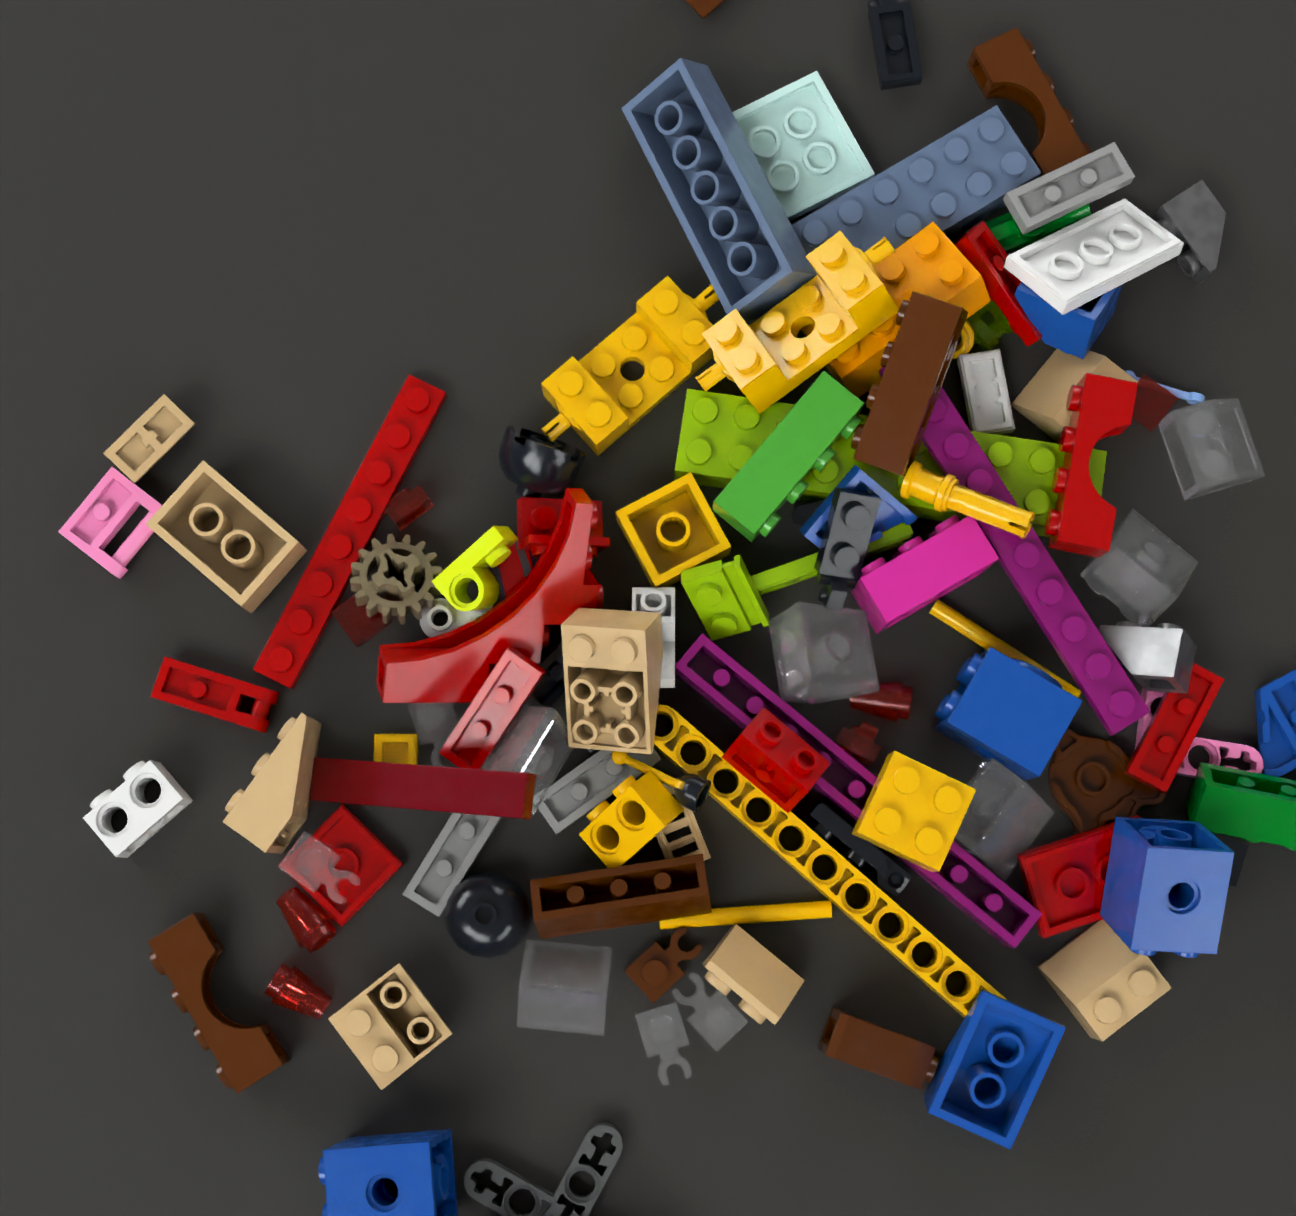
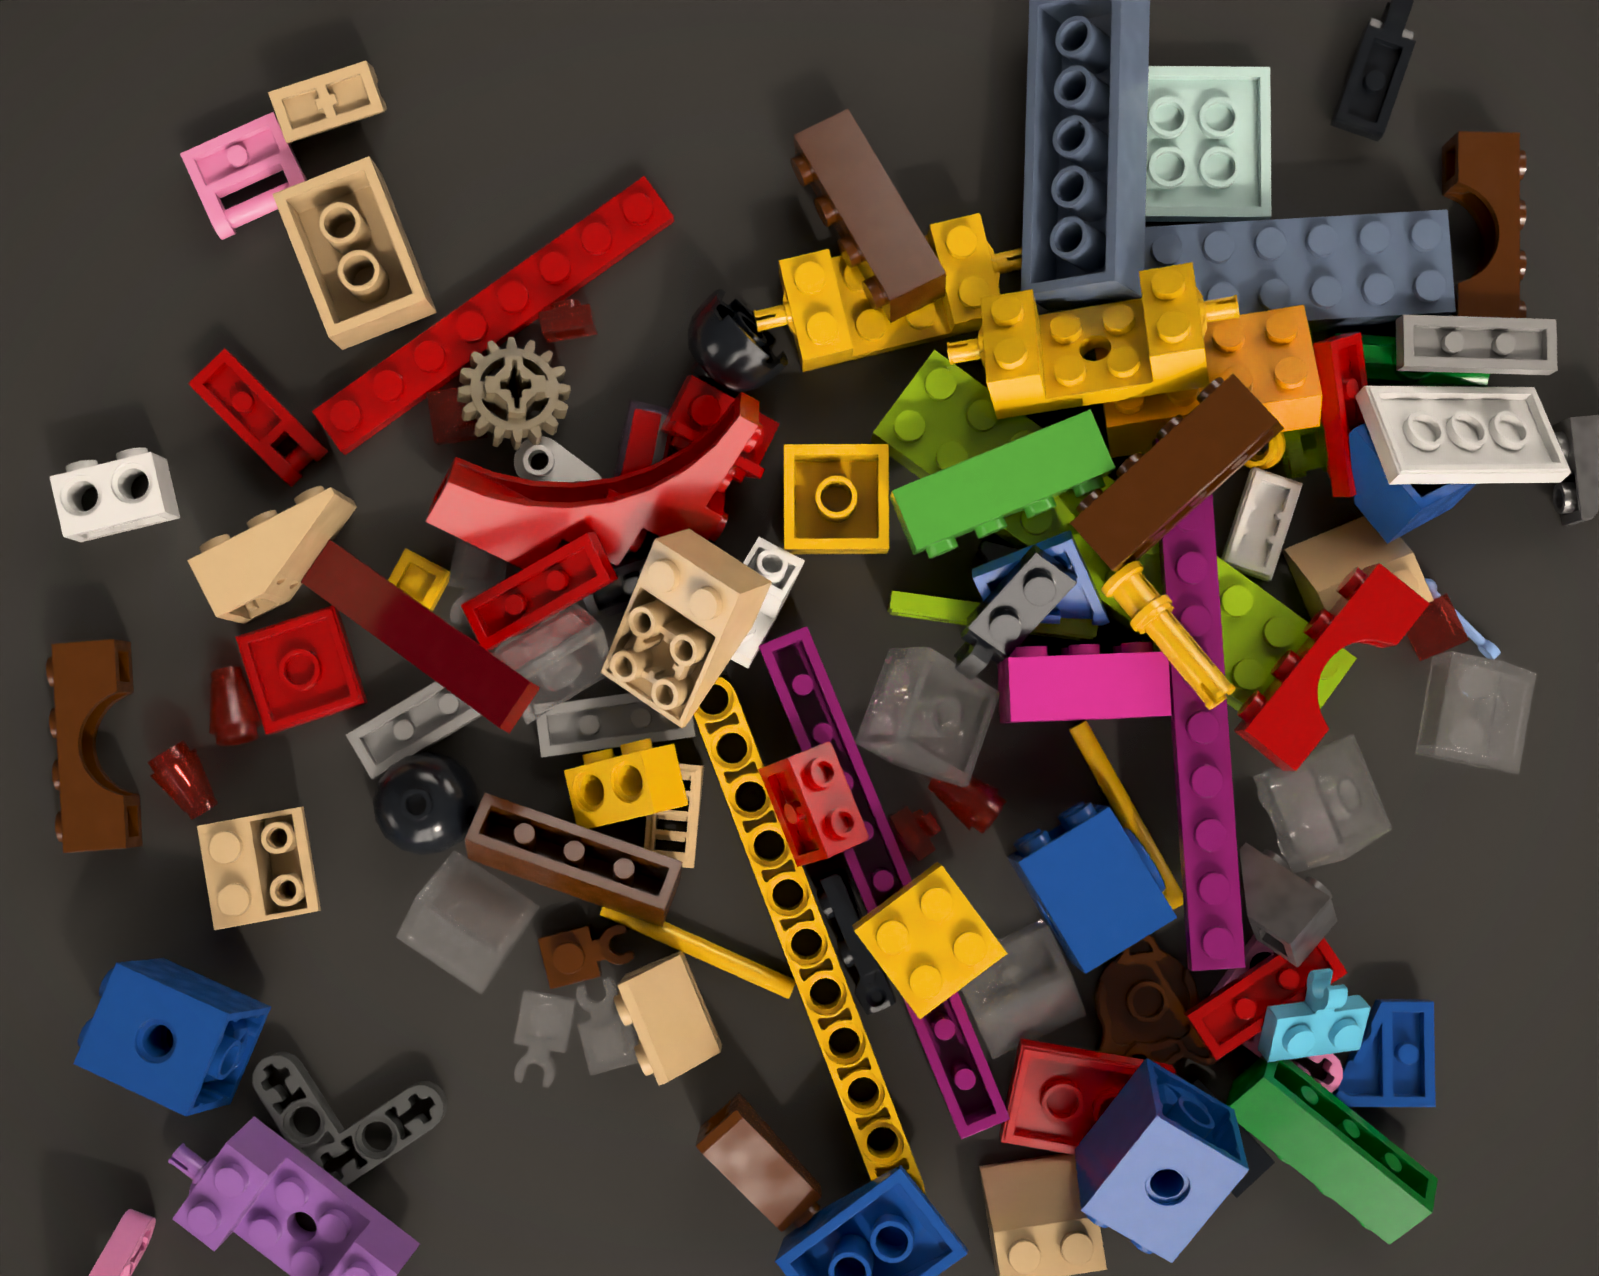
camera: 25 degrees right, 5 degrees up
(314, 864) = (267, 654): clear plate -> none
(472, 564) = (601, 424): neon yellow plate -> none
(589, 319) = (868, 216): none -> reddish brown brick
(689, 789) = (705, 786): hinge -> none
(724, 597) = (853, 599): lime plate -> none
(1227, 726) = (1318, 1026): none -> medium azure plate

